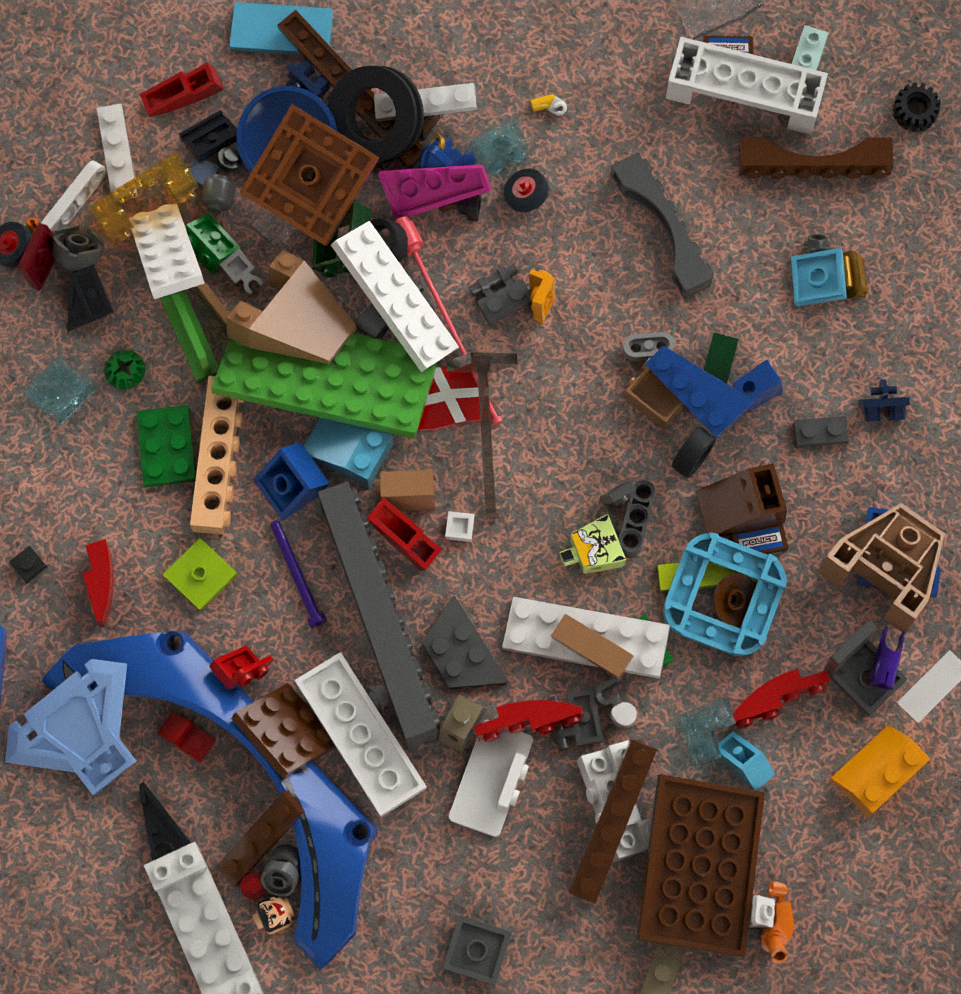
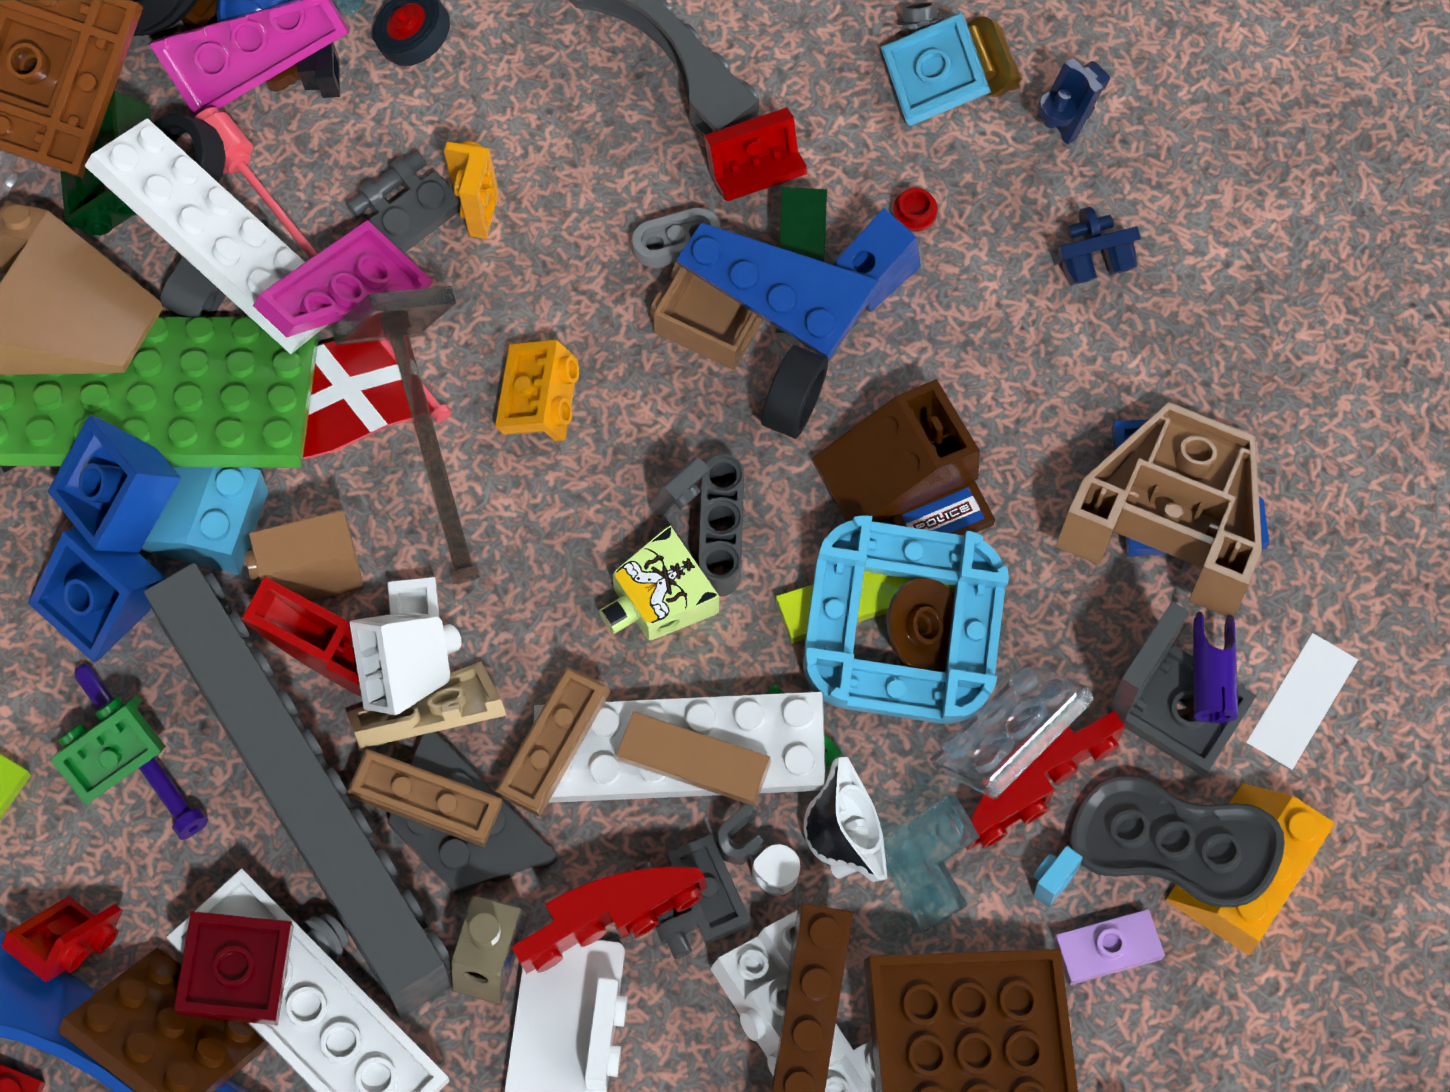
camera: 15 degrees left, 5 degrees down
(281, 570) = (107, 750): none -> green bracket
(311, 428) = (113, 487): none -> blue slope
(327, 704) = (234, 968): none -> dark red plate
(444, 635) = (425, 798): none -> medium nougat tile
(447, 556) = (401, 658): none -> white torso
(459, 335) = (338, 280): none -> dark pink wing
(461, 585) = (462, 701): none -> tan wing
(519, 619) = (553, 741): none -> medium nougat tile
(552, 419) = (537, 389): none -> light orange bracket
(666, 700) = (845, 826): none -> white hat
(703, 308) = (754, 154): none -> red bracket
(745, 761) = (1012, 901): medium azure slope -> none
(768, 668) = (1011, 729): none -> clear plate
(774, 751) = (1055, 875): none -> medium azure plate
(787, 358) = (915, 209): none -> red plate
(792, 797) = (1109, 947): none -> lavender plate
(821, 431) = (1001, 317): dark grey plate -> none
(857, 758) = (1211, 851): none -> dark grey plate
(891, 312) = (1072, 98): none -> dark blue hips

